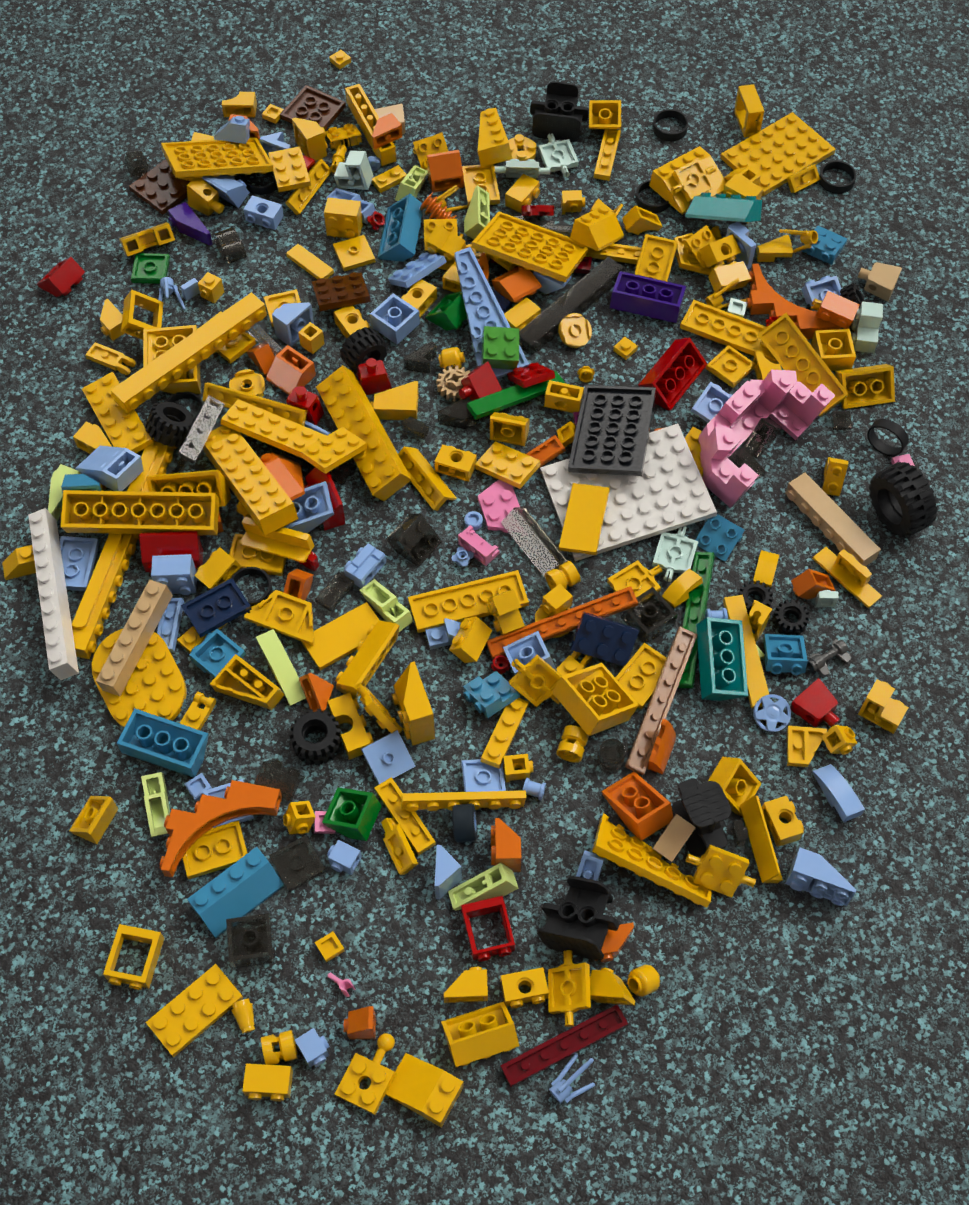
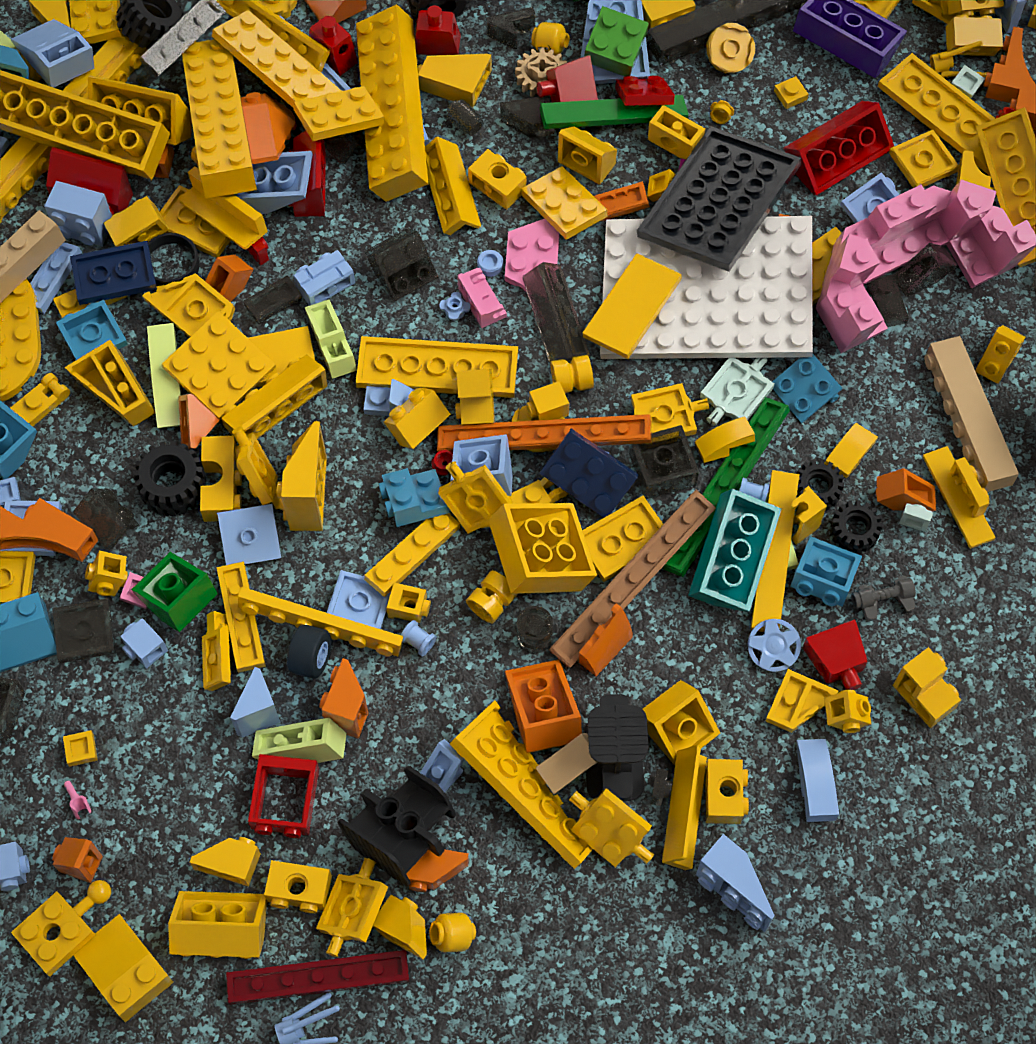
camera: 20 degrees right, 5 degrees up
(318, 647) = (218, 365): none -> yellow plate

